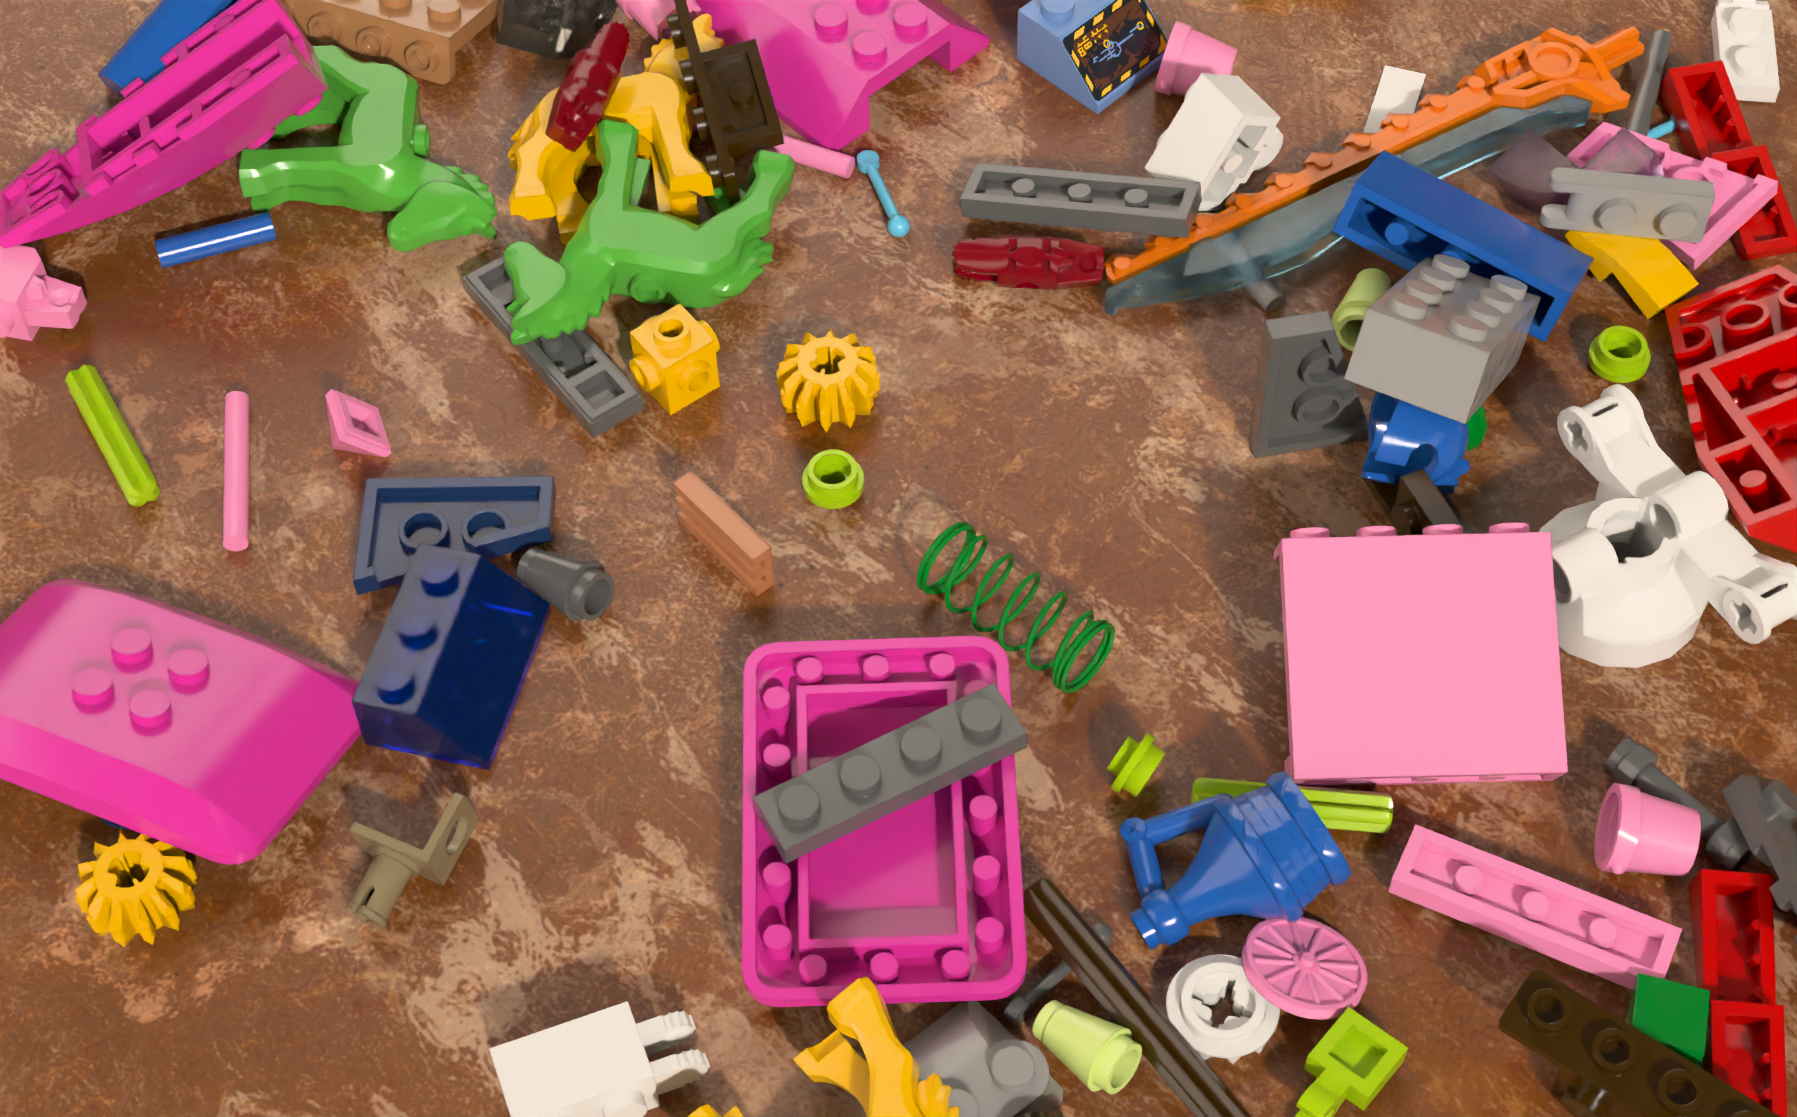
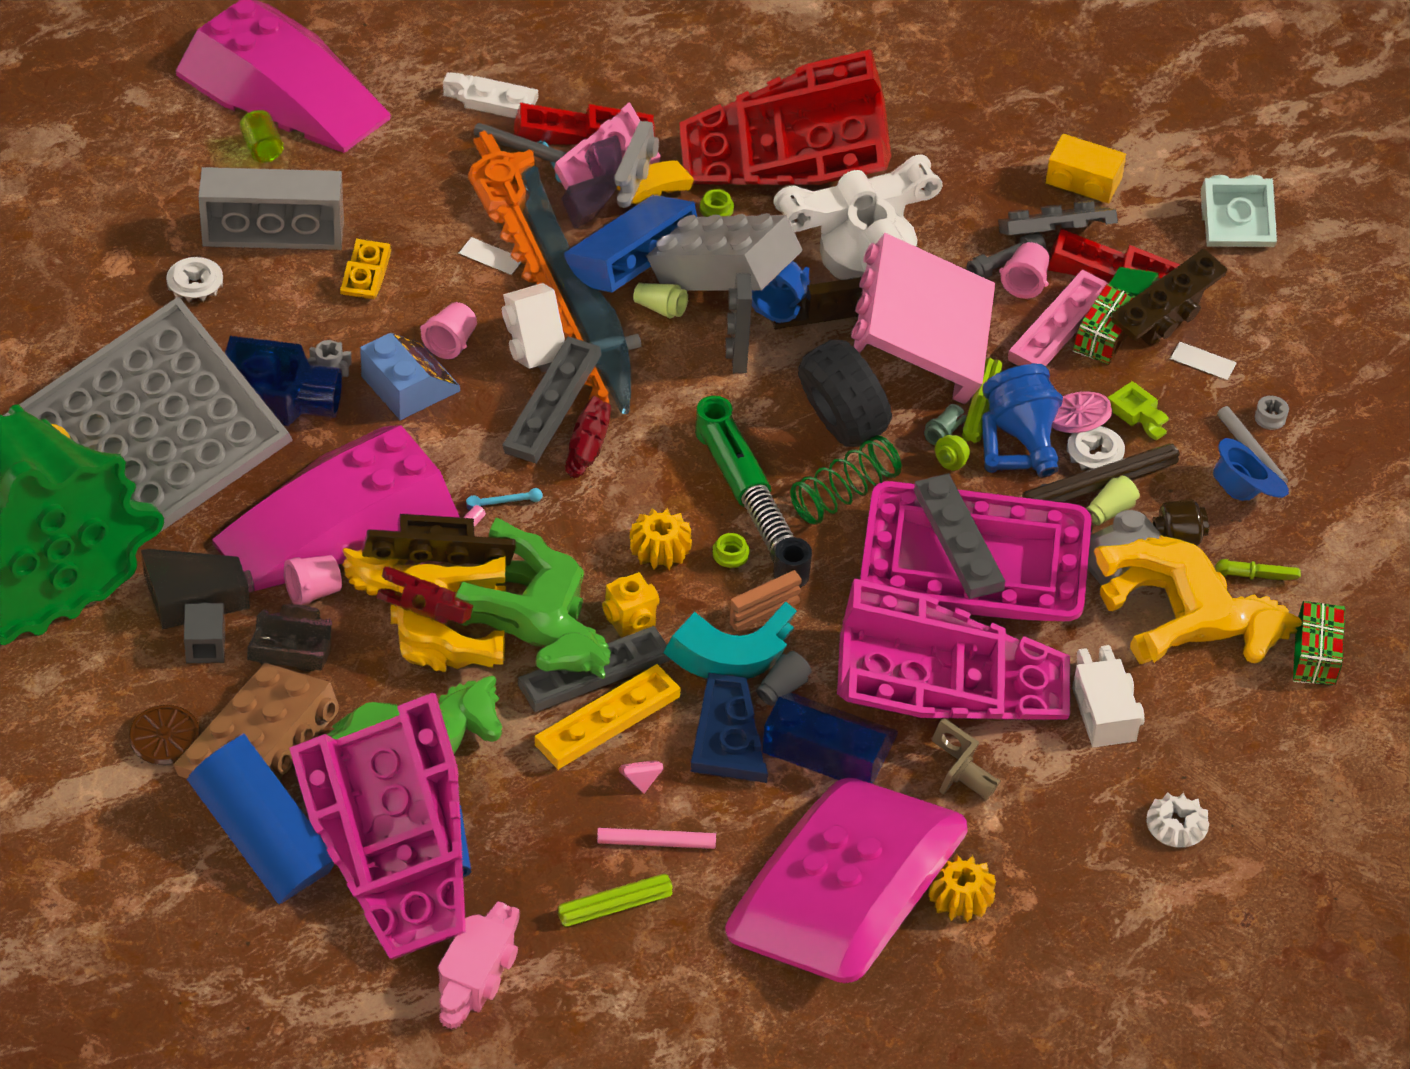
camera: 85 degrees left, 5 degrees down
(459, 371) = (607, 716): none -> yellow plate
(579, 475) = (707, 650): none -> teal arch
(601, 801) = (939, 663): none -> dark pink wedge
(1092, 421) = (750, 486): none -> piece
(1175, 553) = (844, 392): none -> black tyre
(1203, 748) = (944, 424): none -> sand green pin
(1516, 950) = (1097, 333): none -> piece

